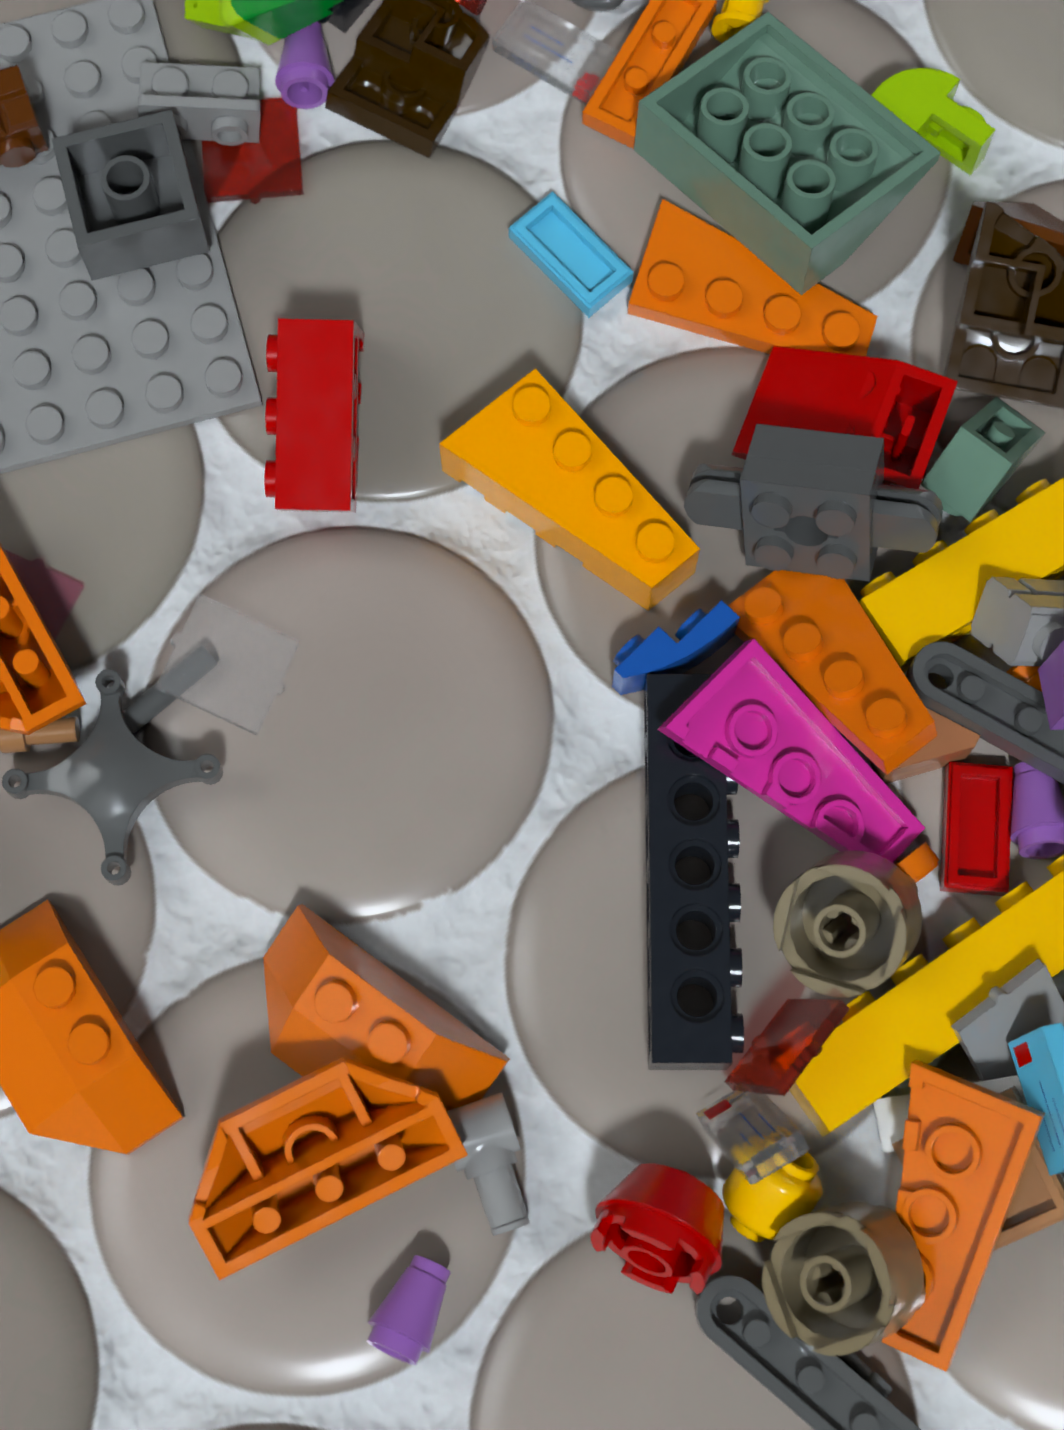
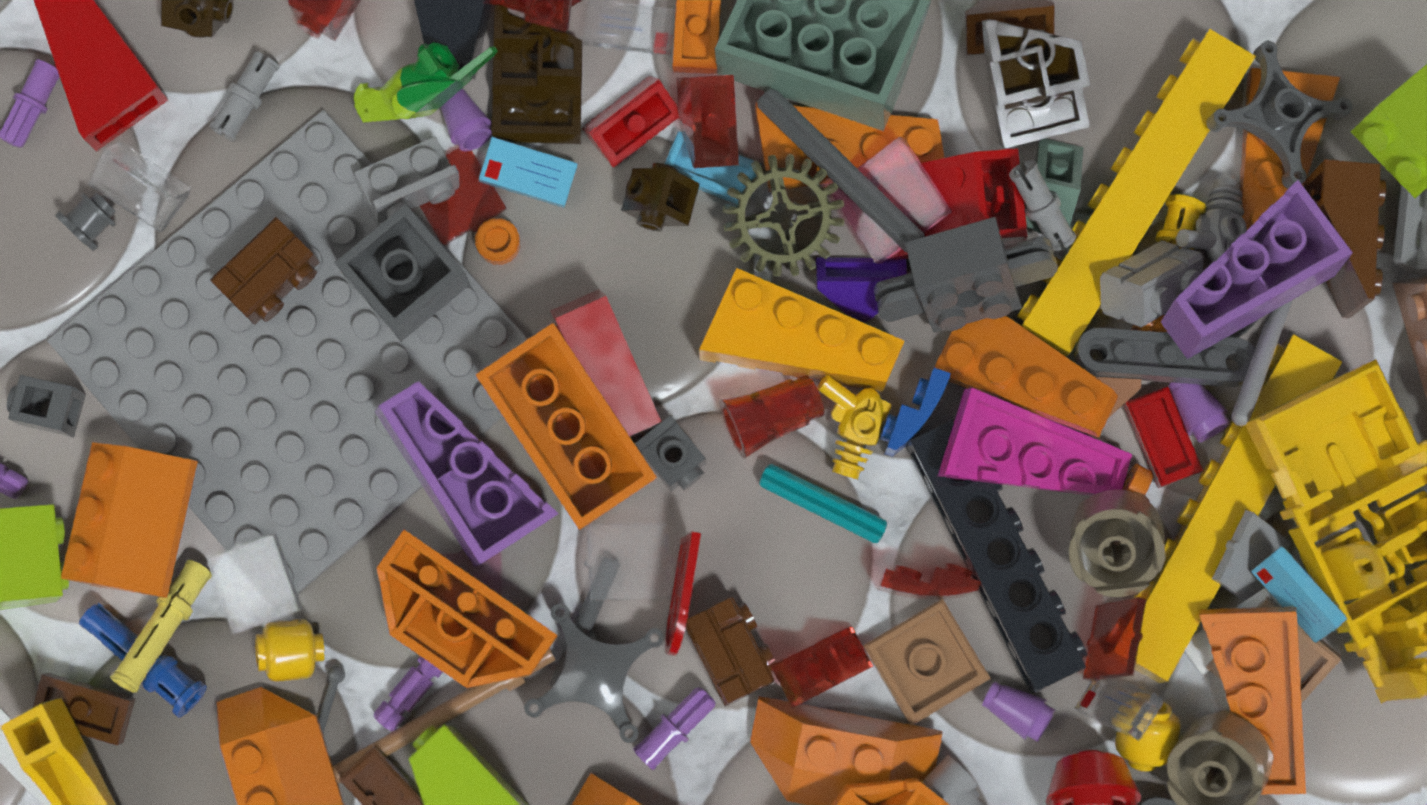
camera: 25 degrees left, 5 degrees up
(78, 478) = (462, 476): none -> medium lavender wedge
(177, 892) = (674, 727): none -> medium lavender axle
(227, 460) = (566, 426): none -> orange slope
(268, 726) = (681, 592): none -> red window
(271, 223) = (497, 241): none -> orange tile
(293, 830) = (730, 650): none -> reddish brown brick
(343, 536) = (658, 441): none -> dark grey brick
(348, 159) = (528, 172): none -> medium azure tile
(397, 904) = (821, 666): none -> clear red slope
(487, 251) = (660, 197): none -> dark brown brick
(493, 566) = (770, 413): none -> clear red plant
(504, 708) = (823, 503): none -> teal axle
(505, 159) = (632, 120): none -> red slope
(534, 965) = (926, 662): none -> medium nougat tile
(594, 186) = (708, 120): none -> clear red slope
(597, 628) = (859, 423): none -> yellow piece
(602, 875) = (943, 583): none -> clear red slope
(622, 1081) = (1019, 710): none -> medium lavender cone
(631, 310) = (821, 207): none -> olive gear
(668, 458) = (852, 281): none -> dark purple slope
(721, 308) = (839, 168): none -> dark grey axle
(768, 376) = (906, 185): none -> clear pink tile
(954, 461) = (1042, 204): none -> light grey pin

